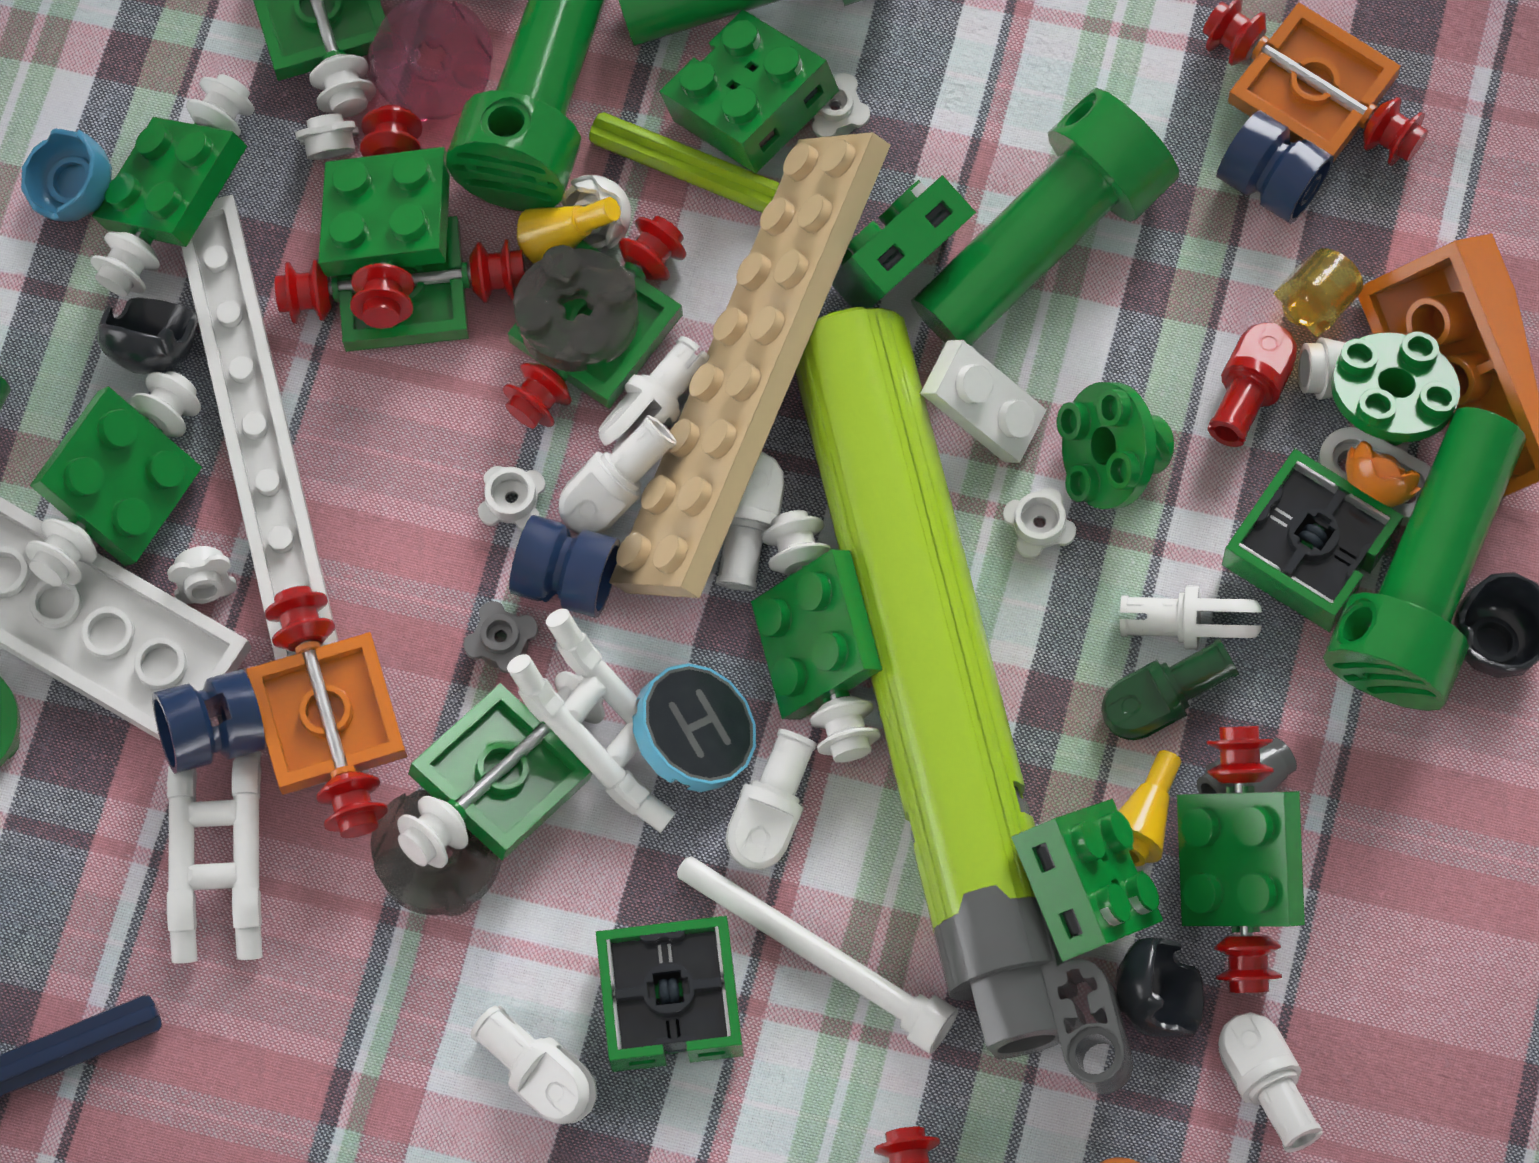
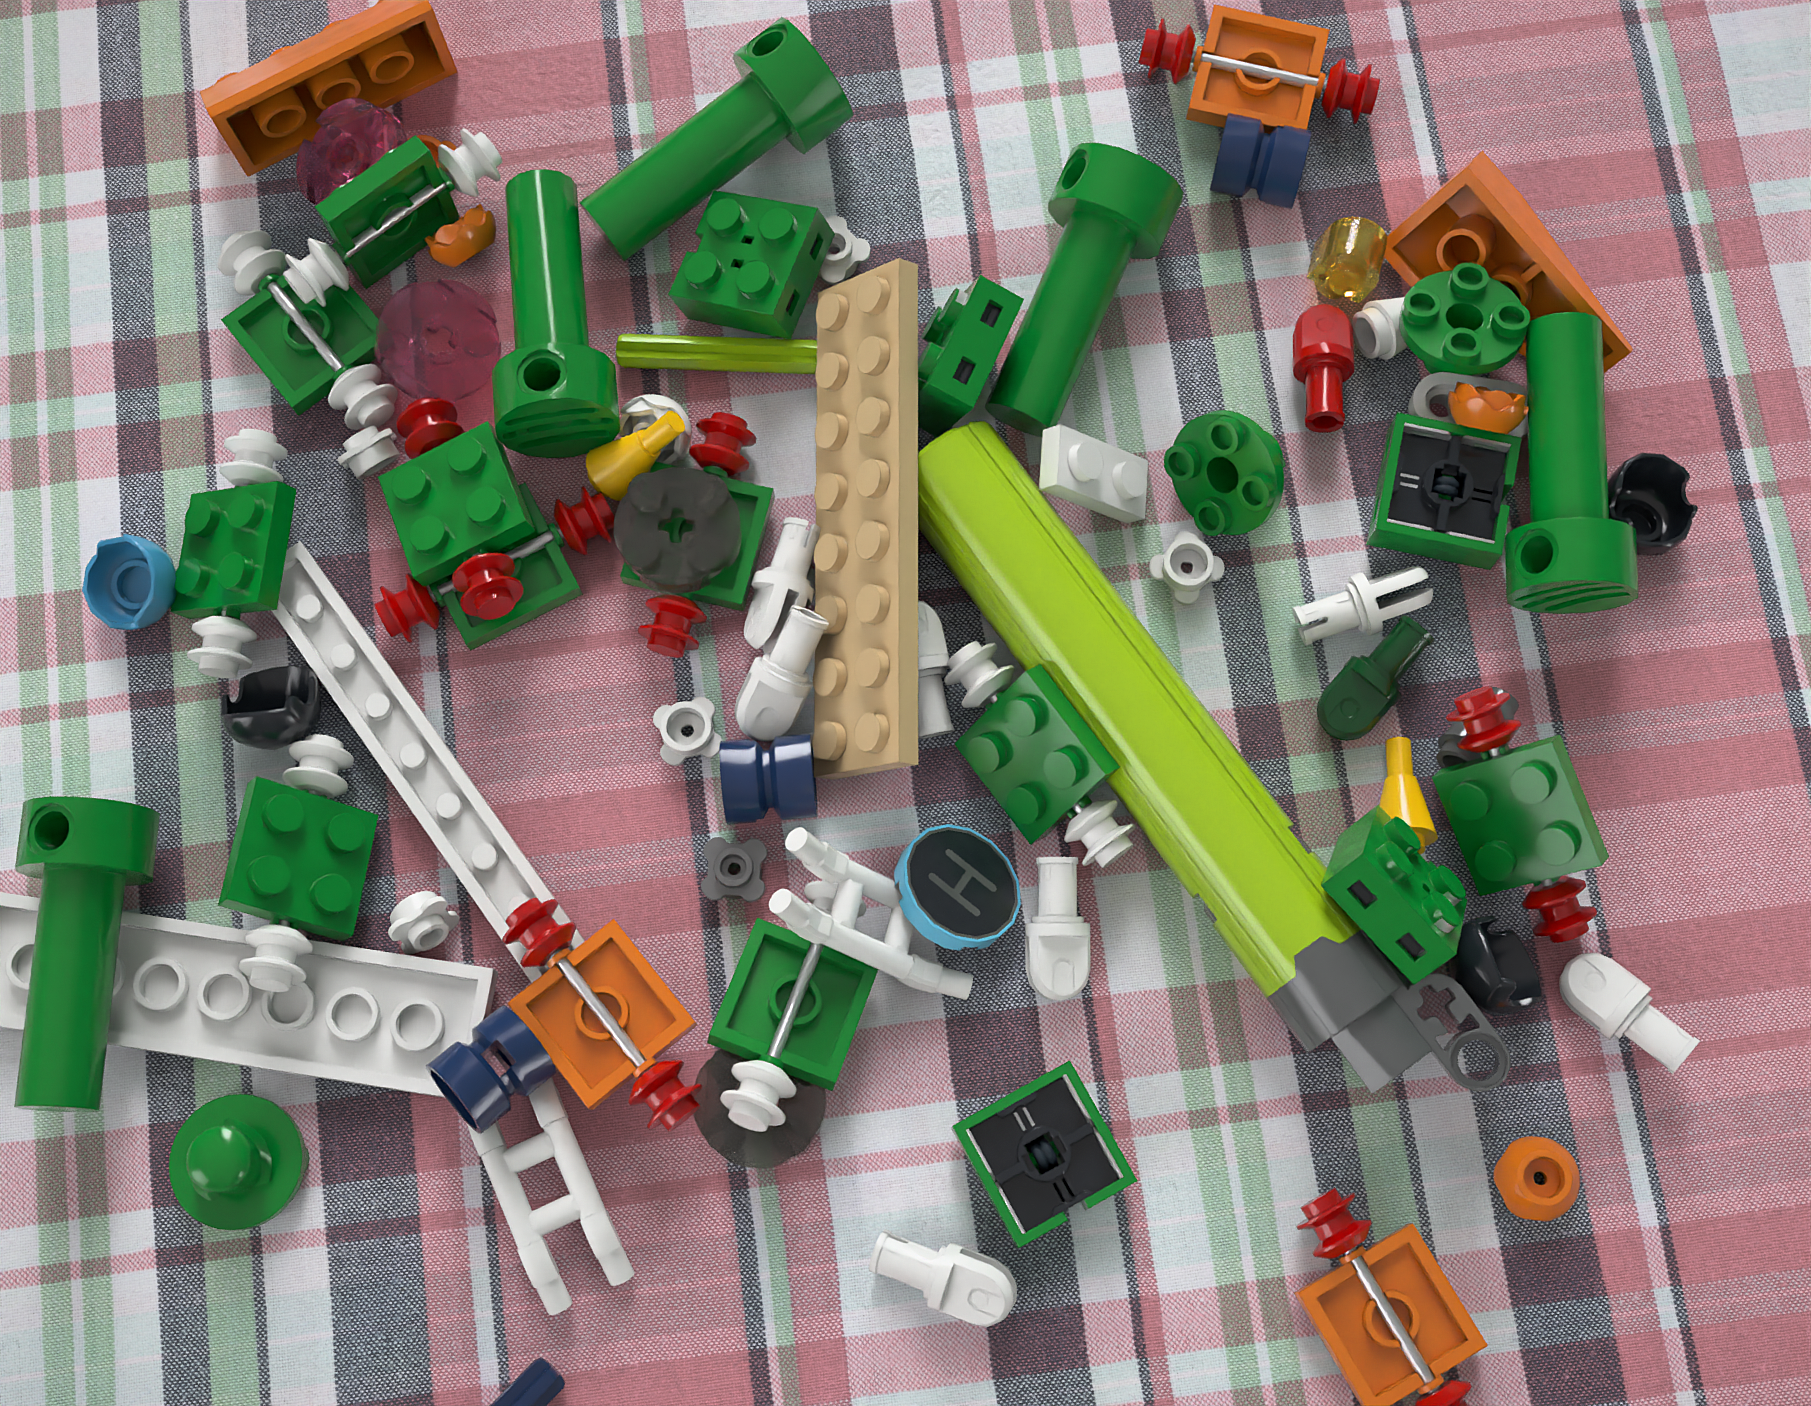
camera: 25 degrees left, 5 degrees up
(921, 1017) = (1283, 1079): white piece -> none

